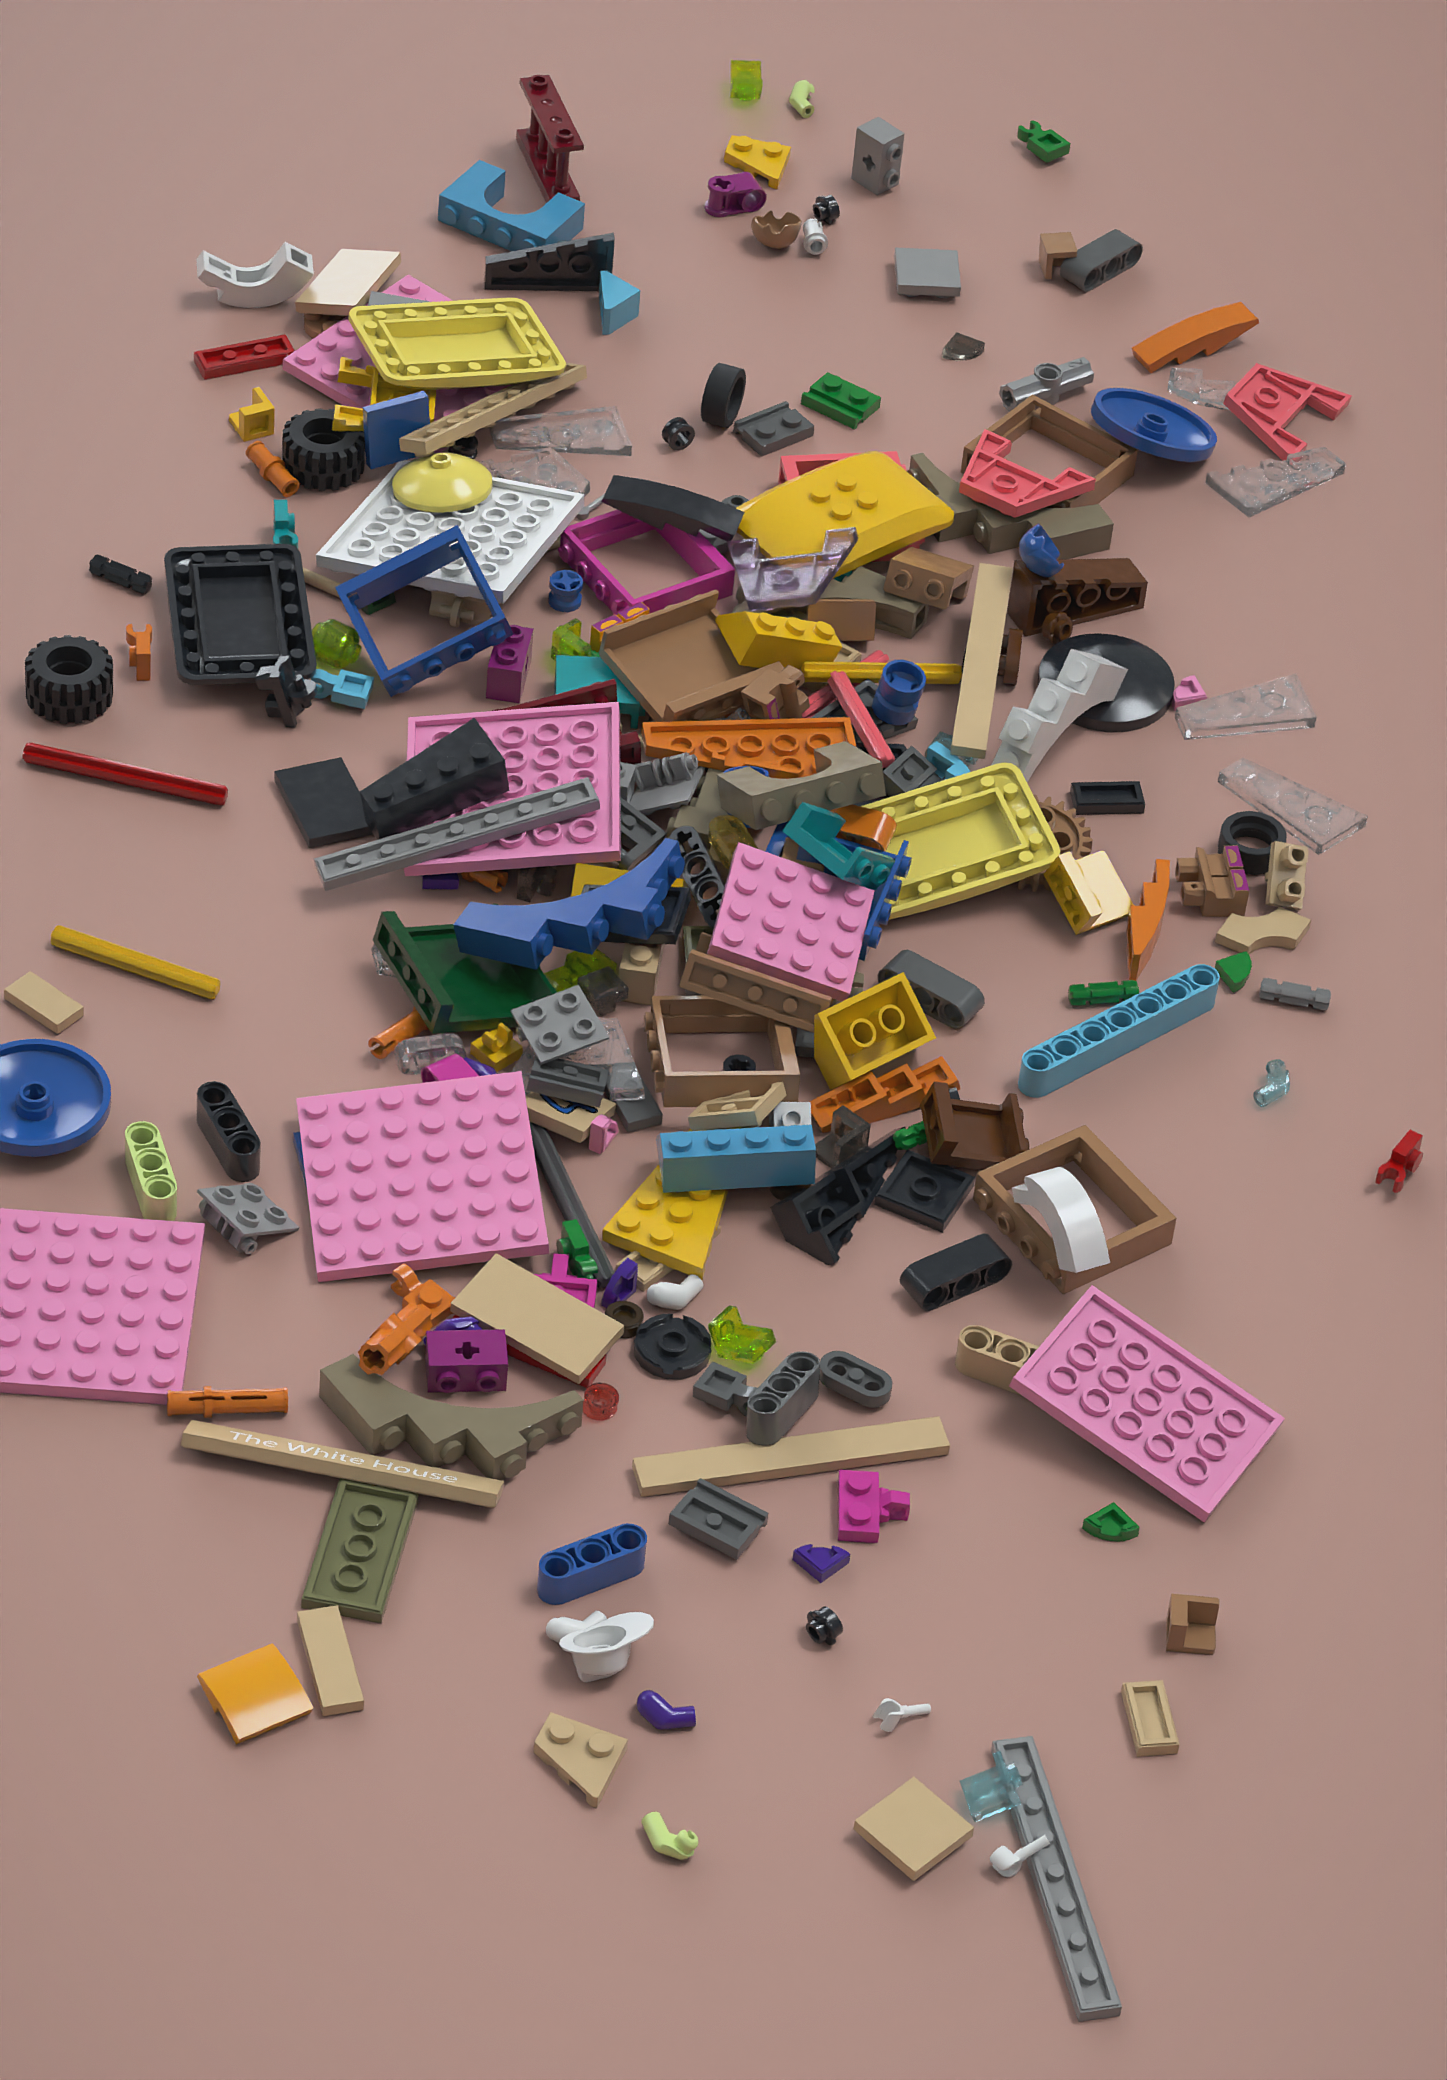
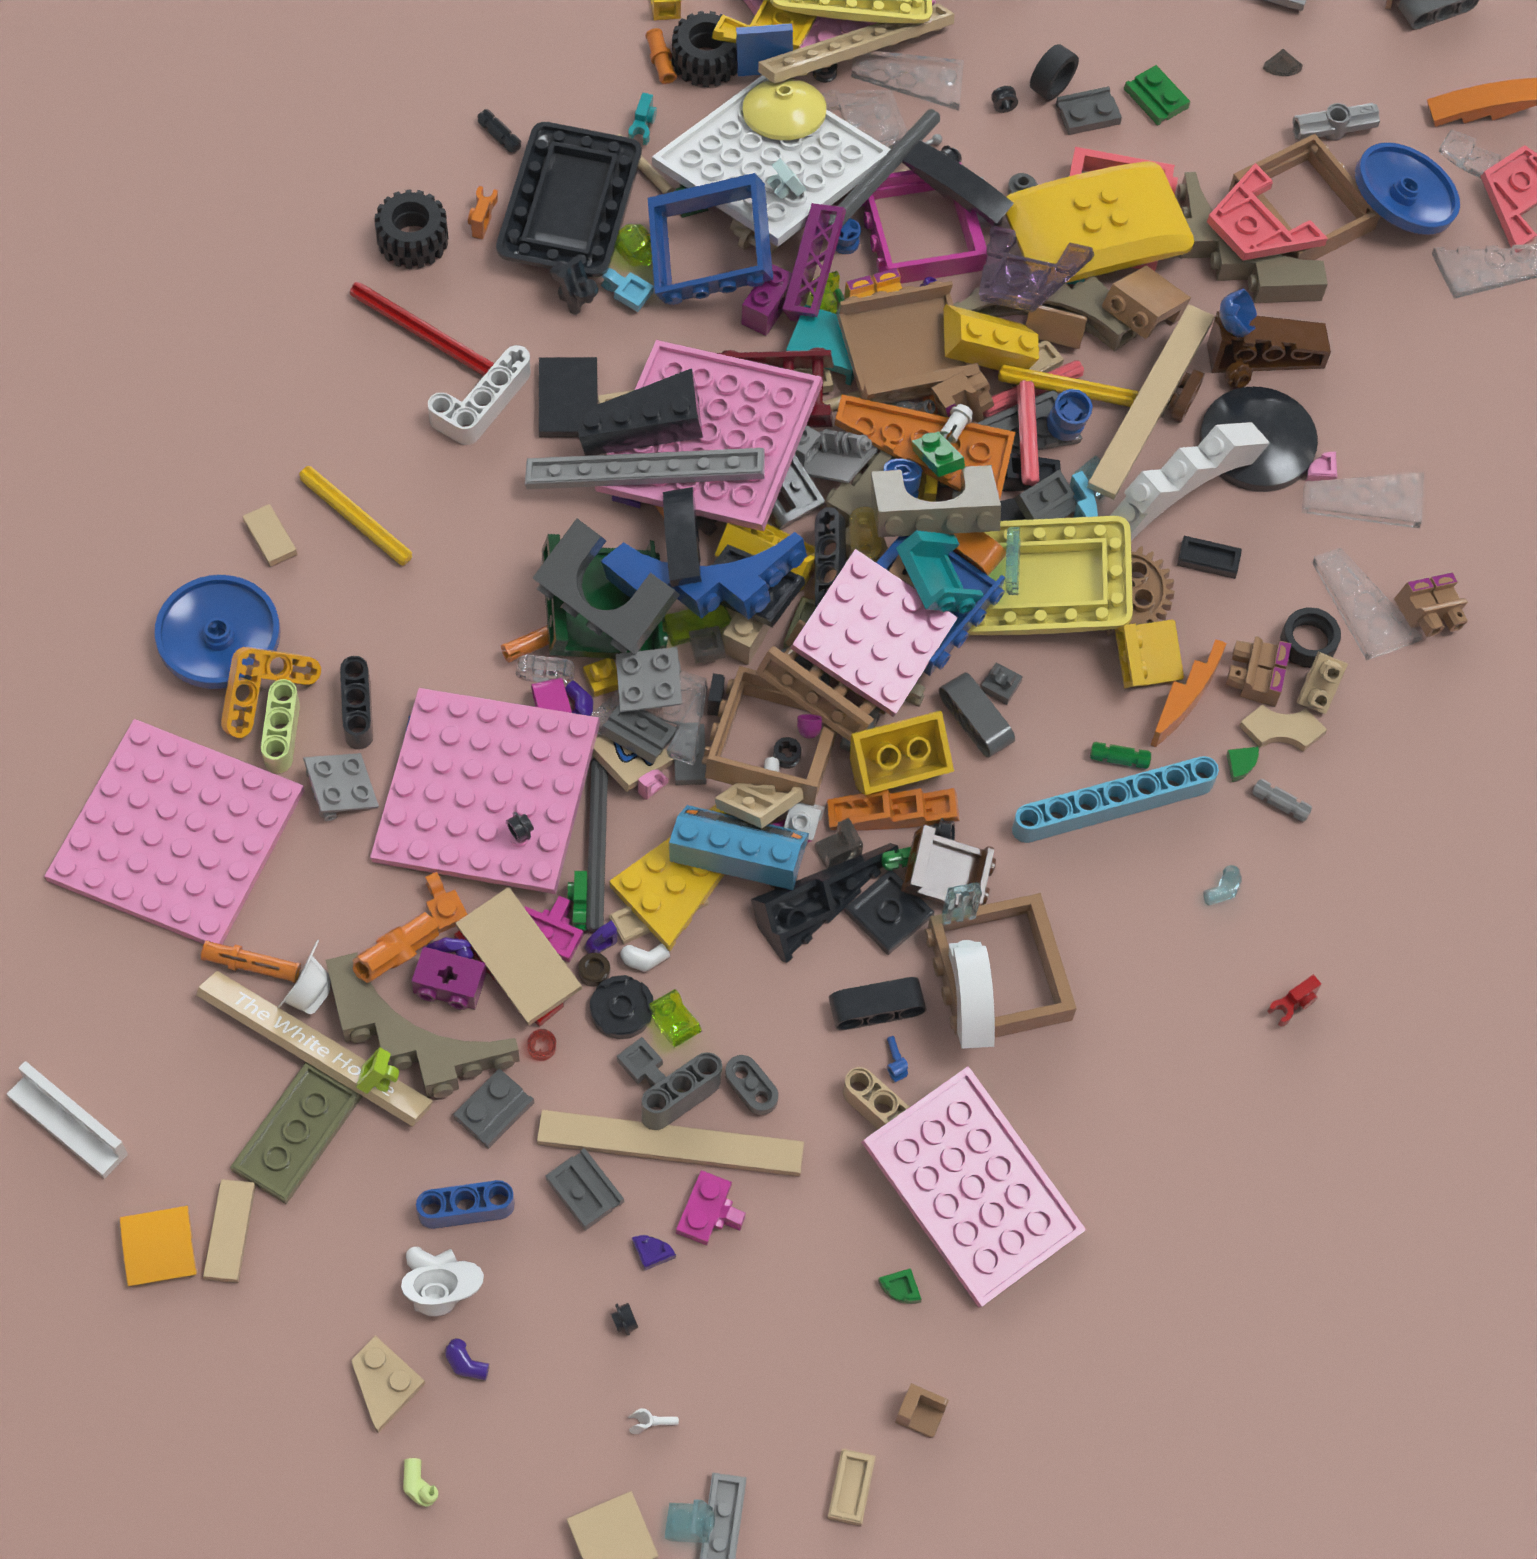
camera: 20 degrees right, 20 degrees up
(88, 1604) = (67, 1121): none -> white fence
(107, 1121) = (259, 670): none -> light orange beam
(222, 844) = (510, 369): none -> white beam
(310, 1401) = (310, 987): none -> white piece
(430, 1455) = (377, 1072): none -> lime tile
(485, 1188) = (520, 826): none -> black plate
(487, 535) = (786, 179): none -> light aqua tile
(512, 971) = (563, 576): none -> dark grey arch
(537, 878) = (682, 537): none -> black slope
(543, 607) = (808, 258): none -> magenta fence
(575, 1473) = (493, 1108): none -> dark grey plate
(582, 514) = (887, 164): none -> dark grey axle
(635, 1032) = (716, 694): none -> black tile
(762, 1024) = (809, 725): none -> magenta hinge
(780, 745) = (938, 454): none -> green plate
(785, 712) = (959, 418): none -> white pin
(907, 828) = (1013, 561): none -> clear light blue tile
(944, 953) = (1001, 683): none -> dark grey tile
(1005, 1324) = (898, 1068): none -> blue hand
(1017, 1137) = (967, 903): none -> clear light blue tile
(1364, 783) = (1432, 601): none -> medium nougat hips

